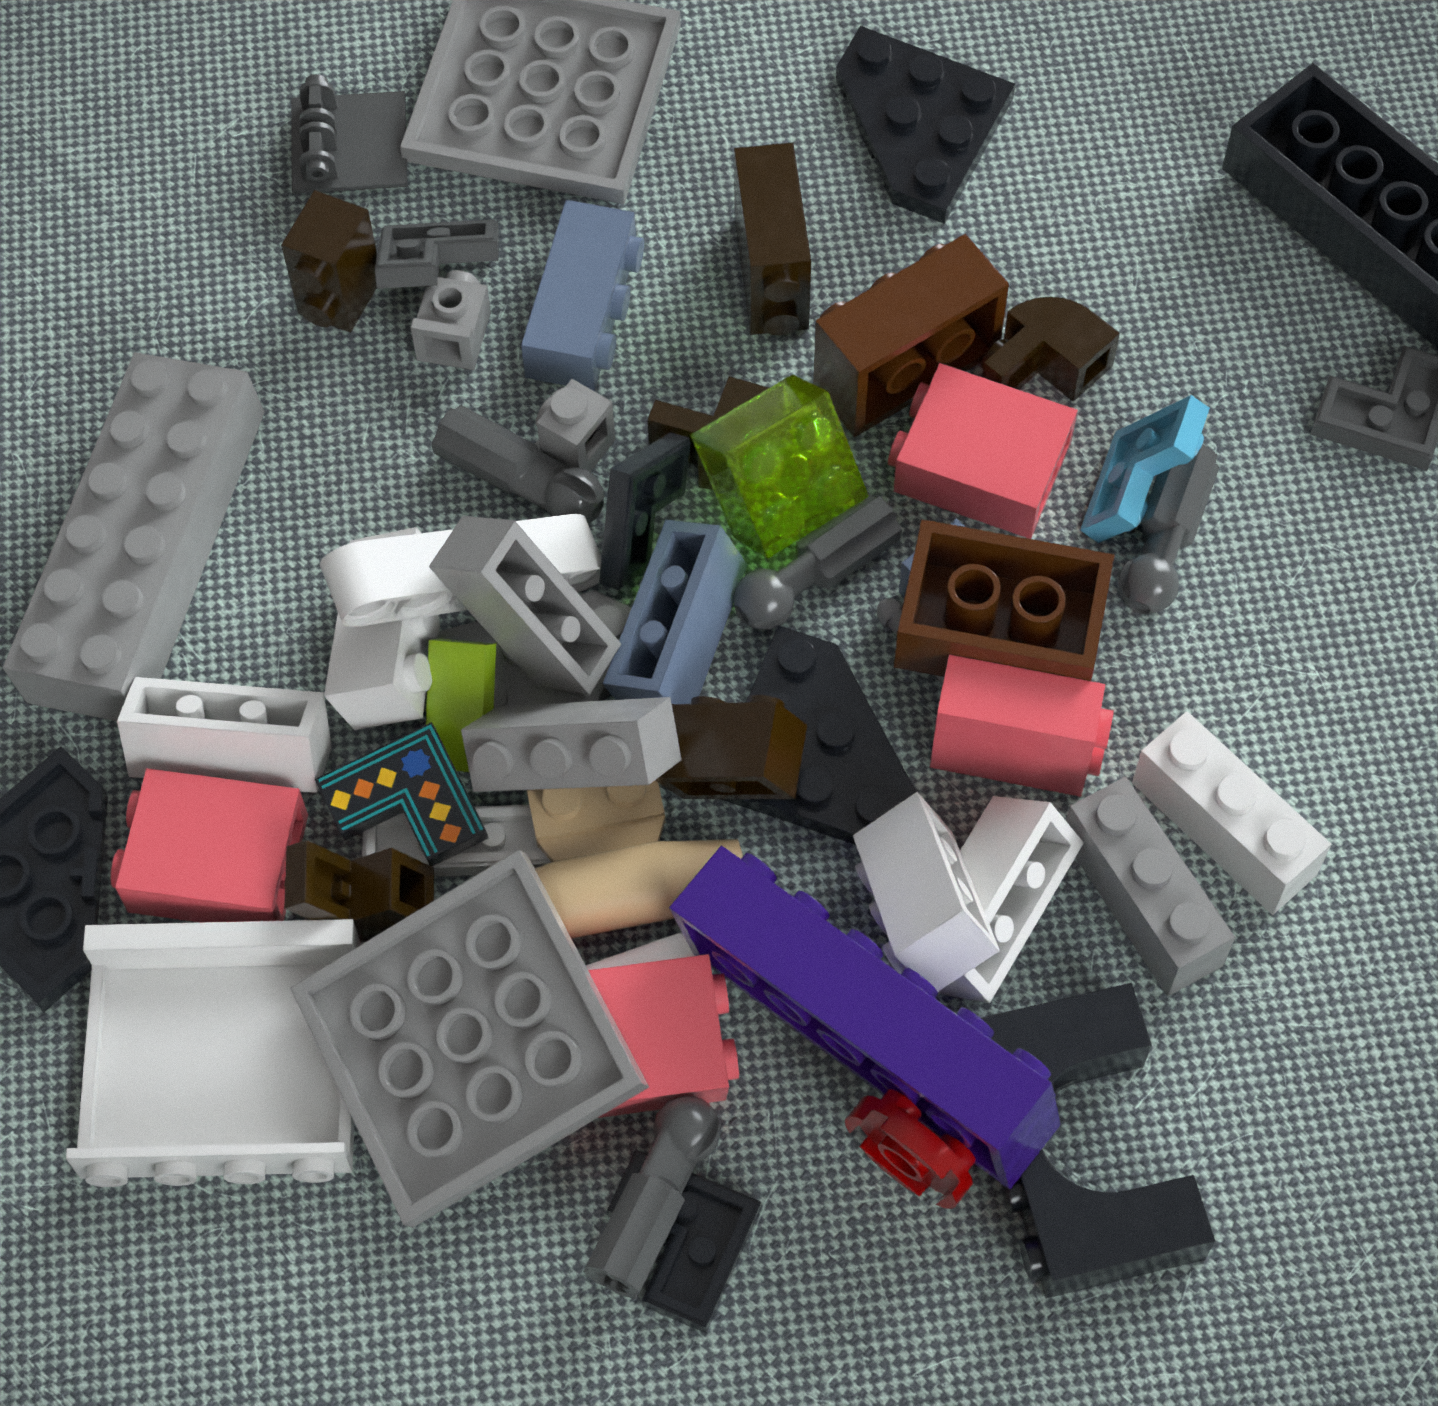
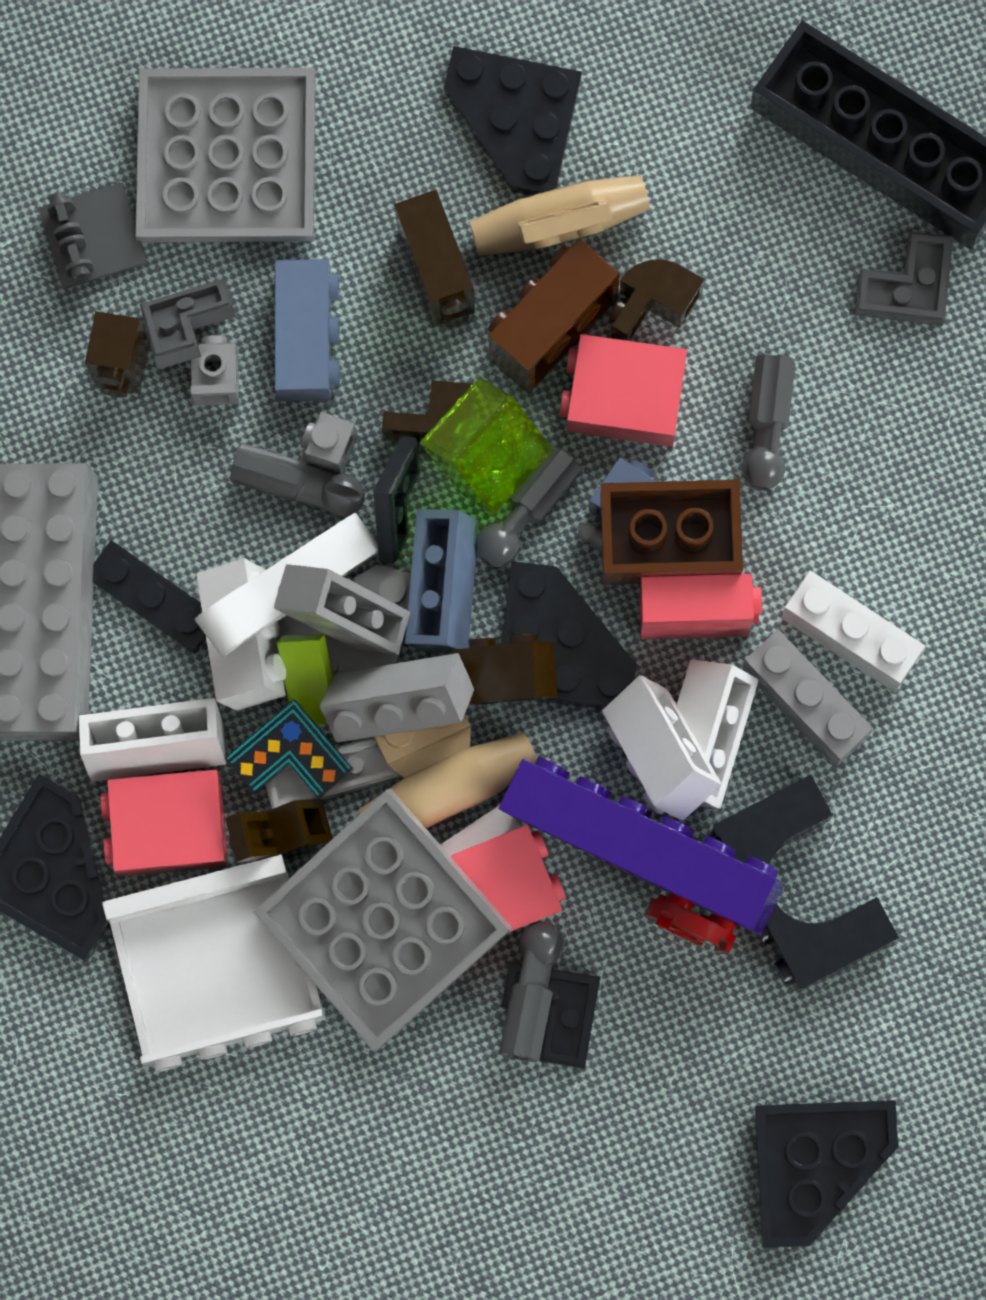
camera: 10 degrees left, 15 degrees up
(280, 565) = (149, 595): none -> black plate
(905, 227) = (559, 215): none -> tan plate
(1134, 458) = (735, 372): medium azure plate -> none

